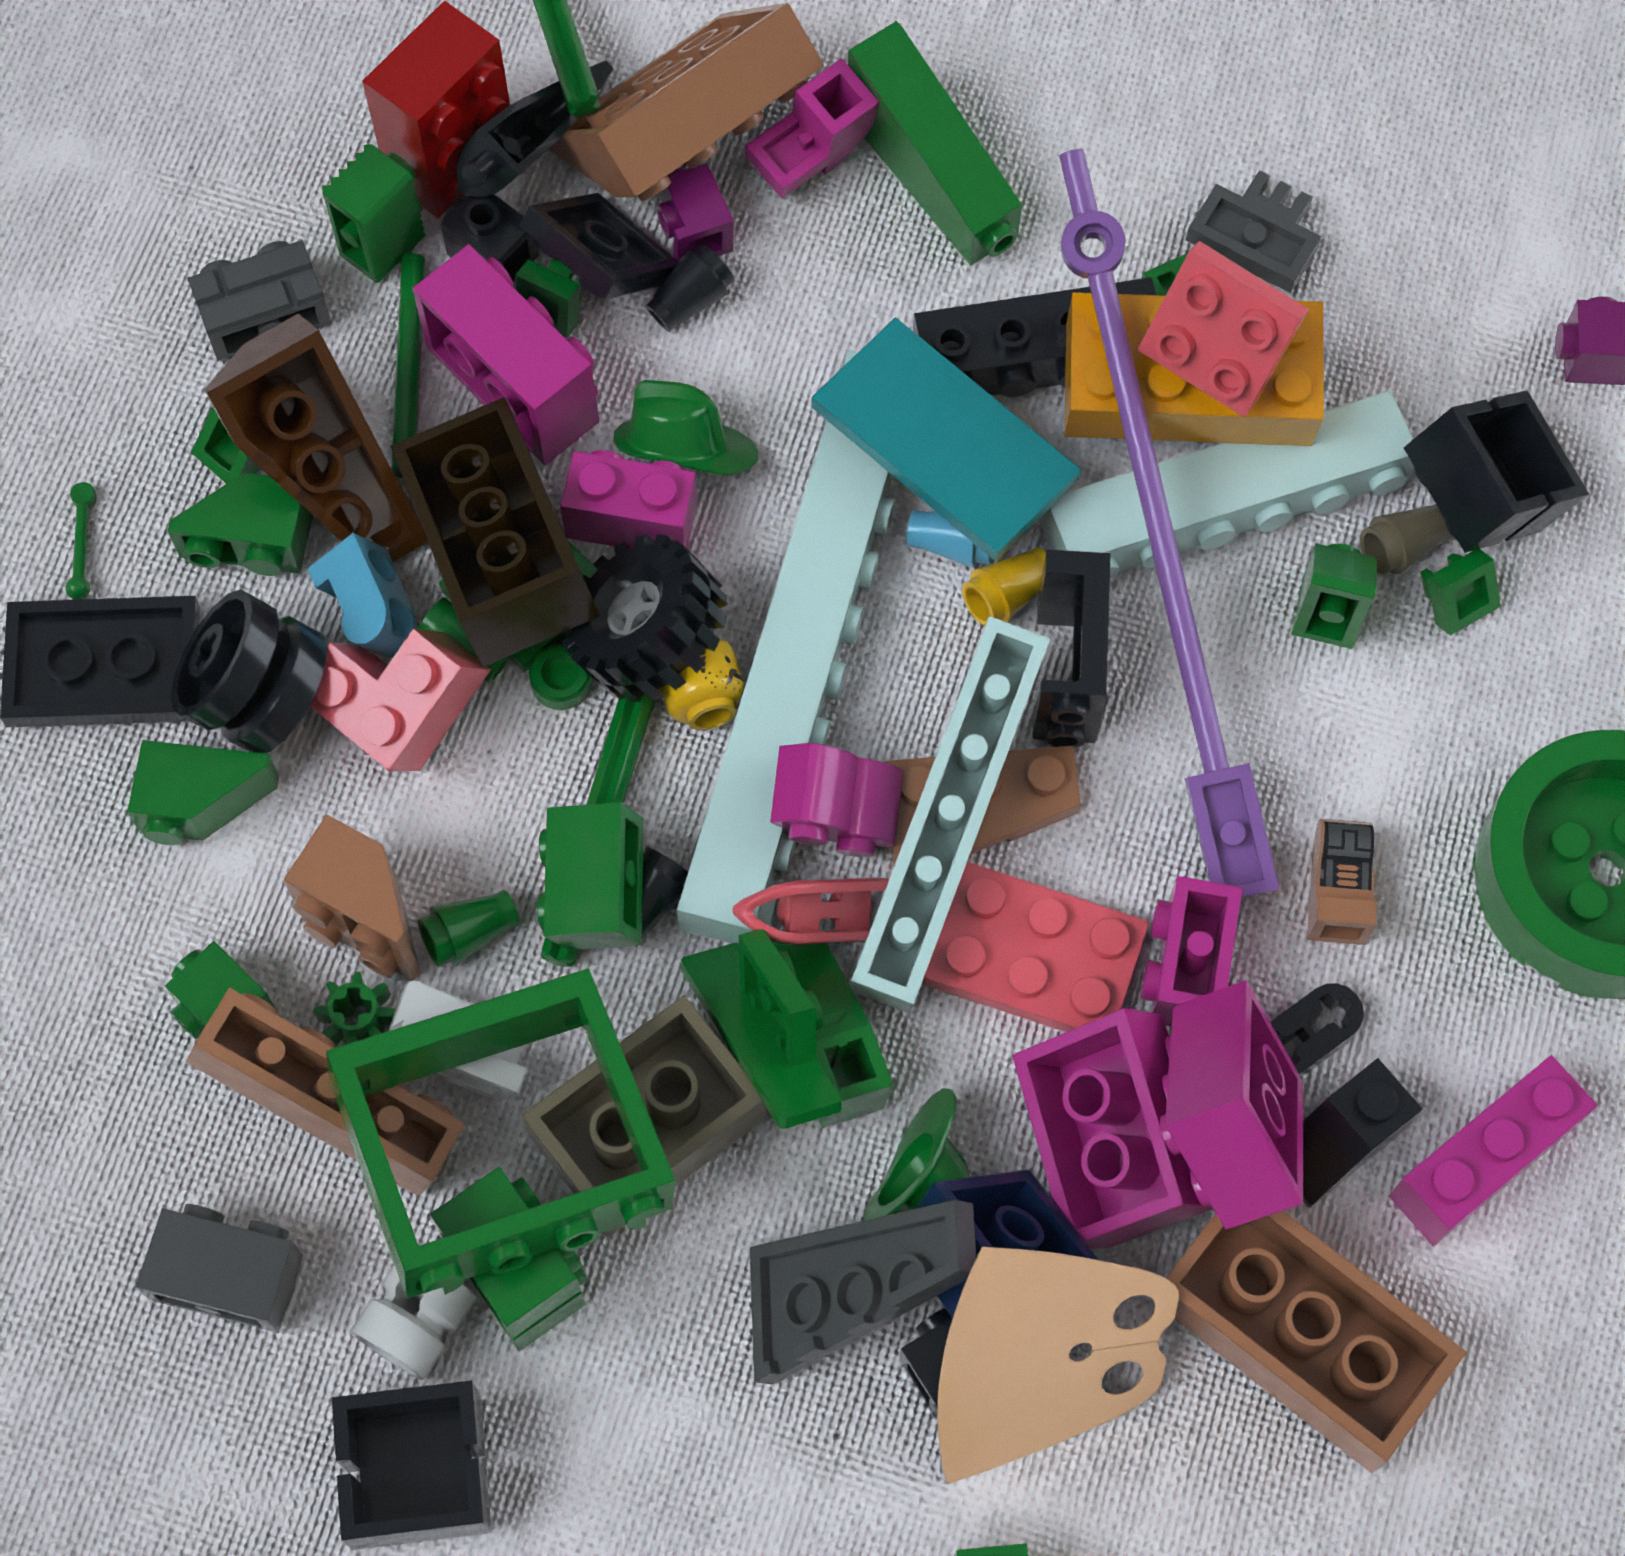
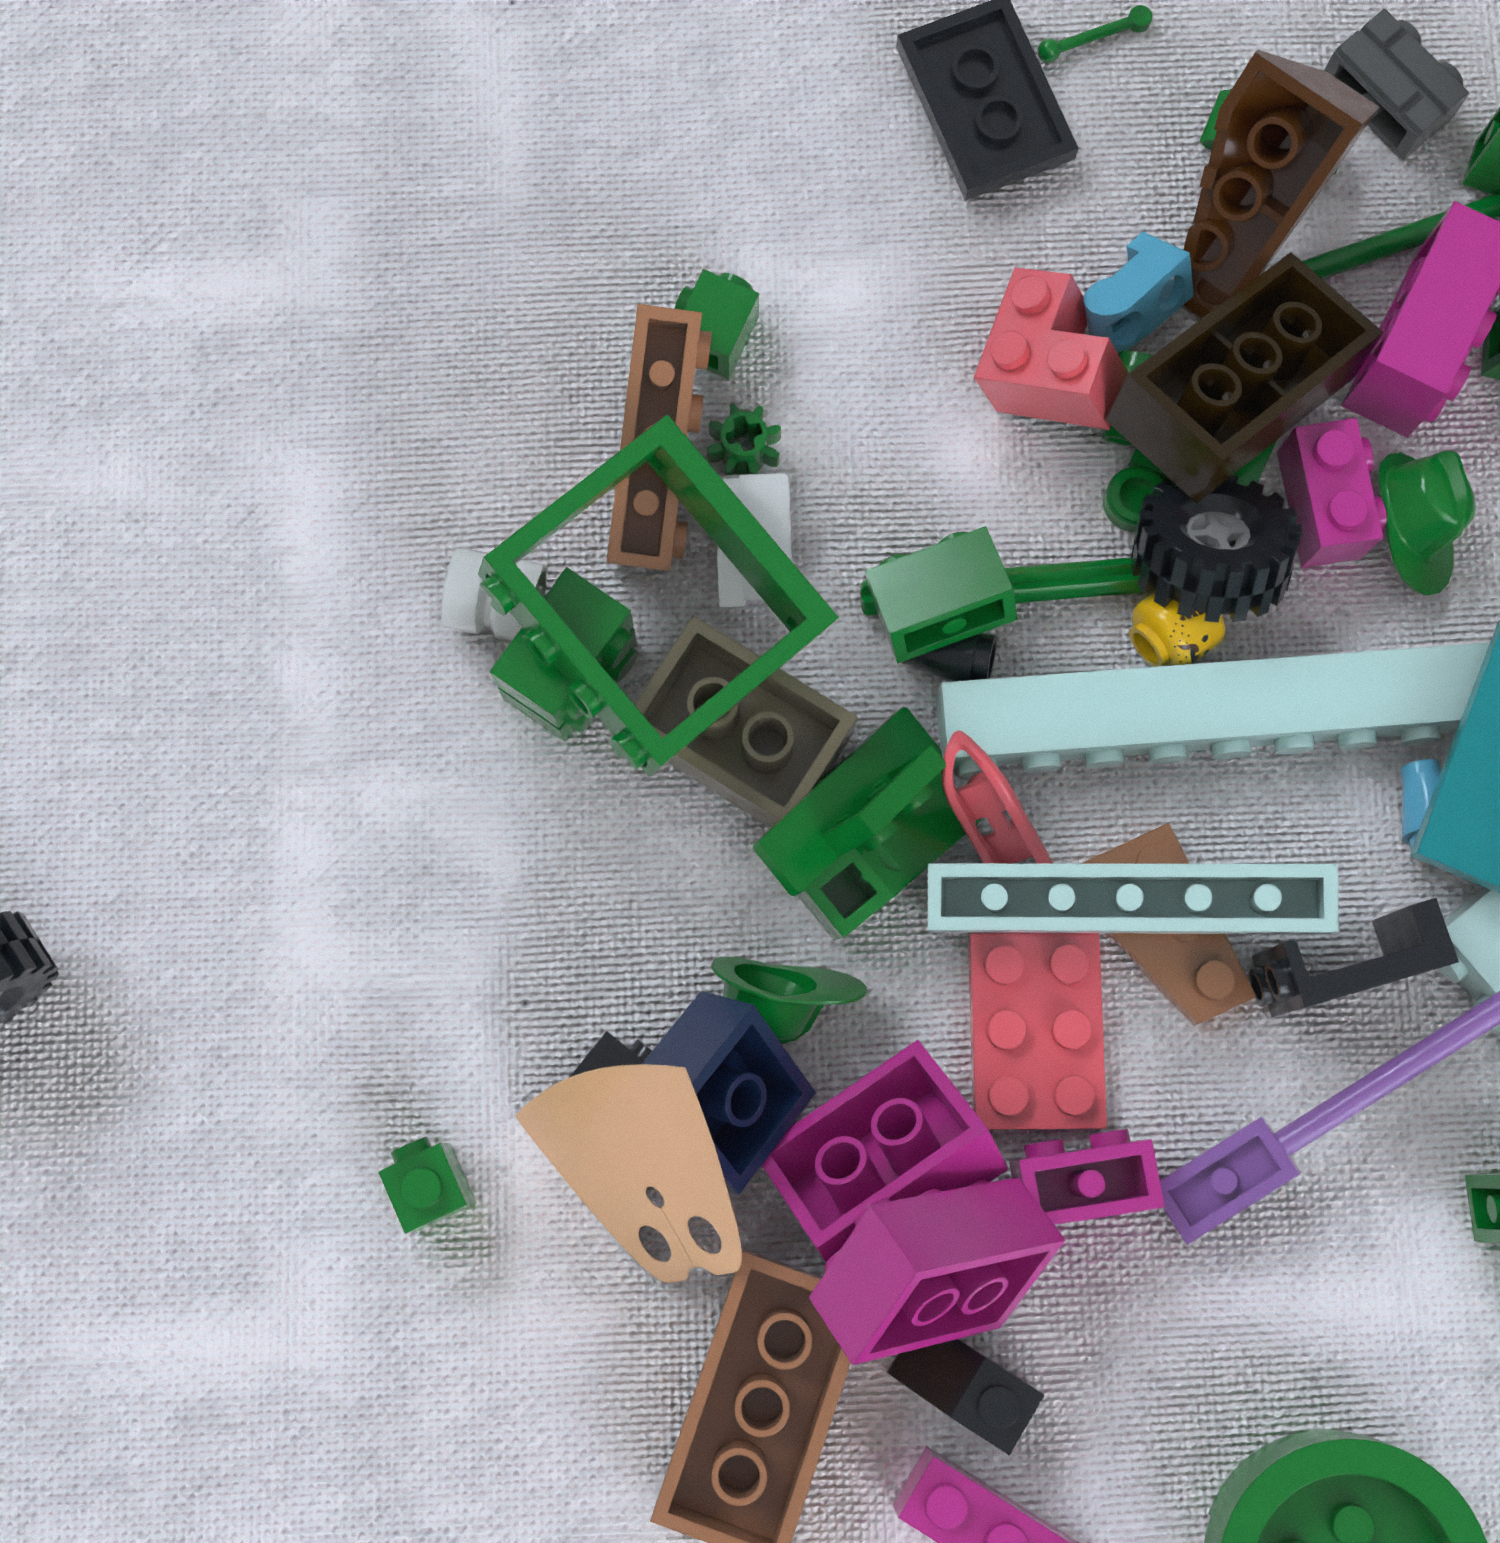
camera: 70 degrees right, 10 degrees up
(195, 789) = (896, 223): green slope -> none
(220, 1267) = (477, 419): dark grey brick -> none
(245, 525) = (1162, 162): green slope -> none
(249, 672) = (1016, 218): black wheel -> none
(352, 896) = (841, 397): nougat slope -> none
(412, 1465) = (362, 651): black piece -> none
(464, 927) = (862, 506): green cone -> none
(836, 798) = (1107, 788): dark pink brick -> none
(851, 1279) = (646, 965): dark grey wing -> none
(1004, 586) = (1393, 876): yellow cone -> none
(1327, 1041) = (1075, 1310): black beam -> none
(1342, 883) = (1220, 1305): nougat leg -> none

